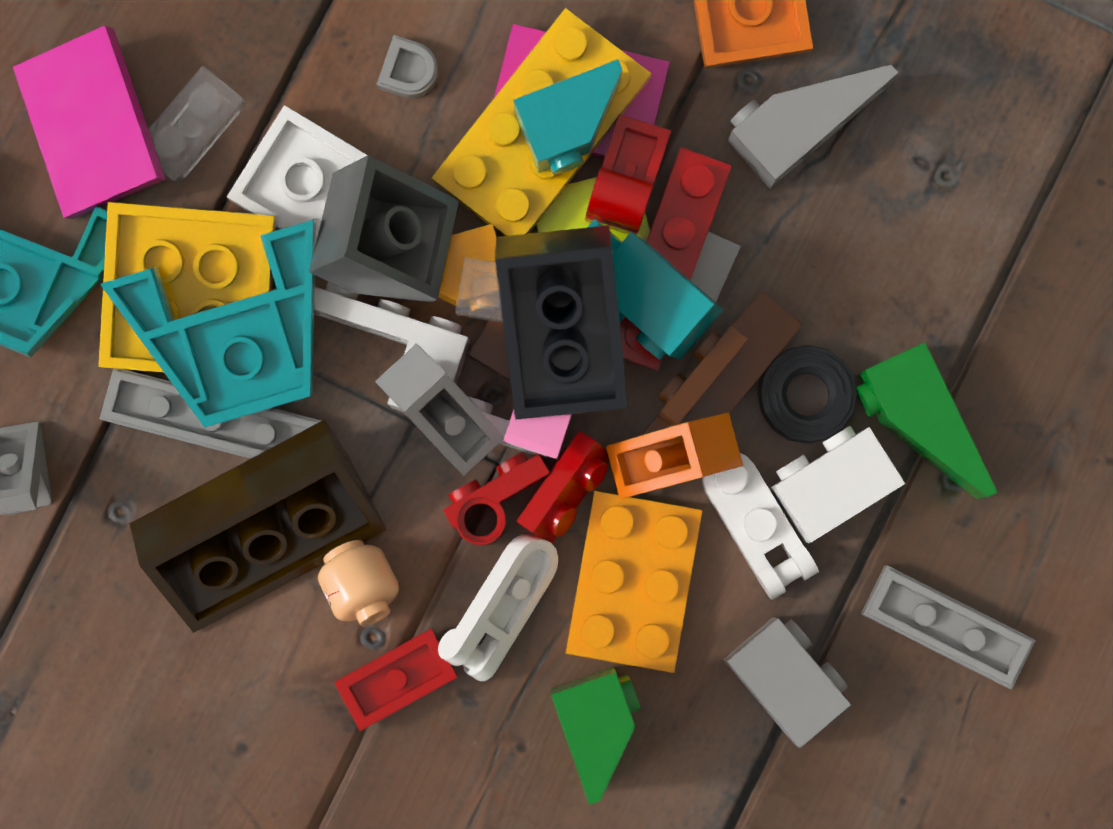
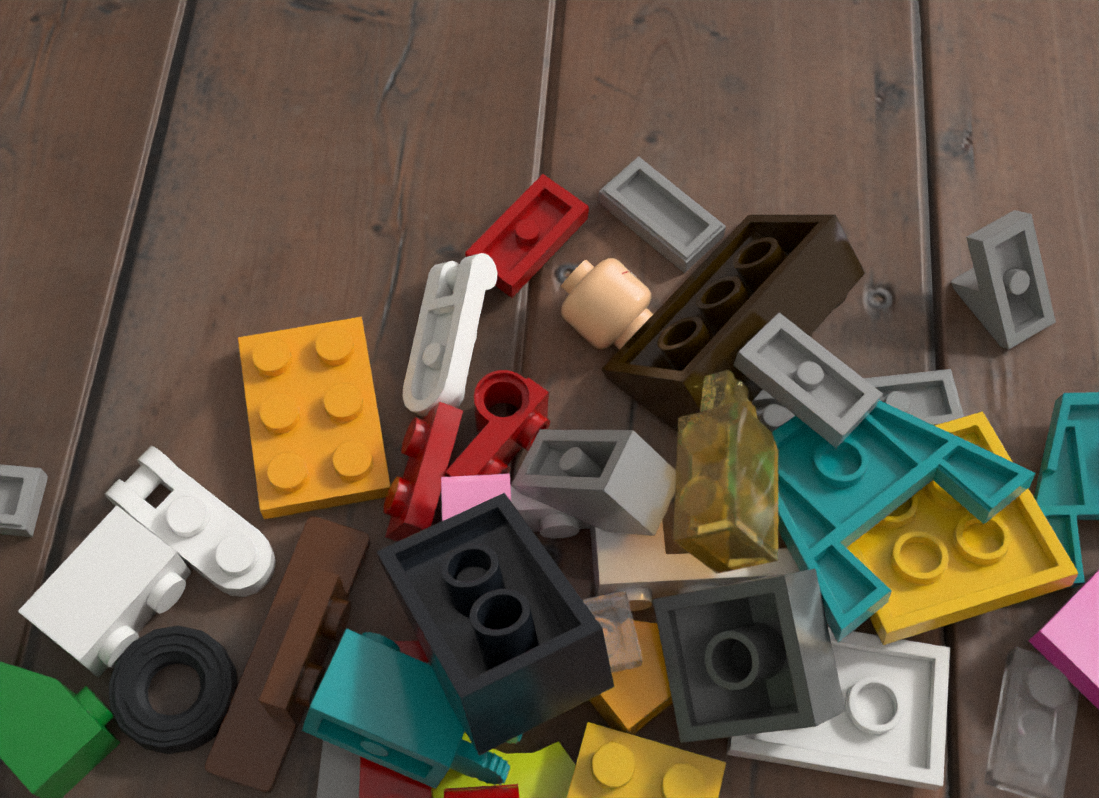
camera: 155 degrees right, 20 degrees down
(237, 427) = (807, 379): none -> light grey plate
(269, 662) = (661, 214): none -> light grey tile
(340, 370) = (726, 480): none -> clear yellow hinge
(596, 725) = (303, 245): green slope -> none
(674, 455) = (303, 532): orange slope -> none
(788, 680) = (109, 368): light grey brick -> none

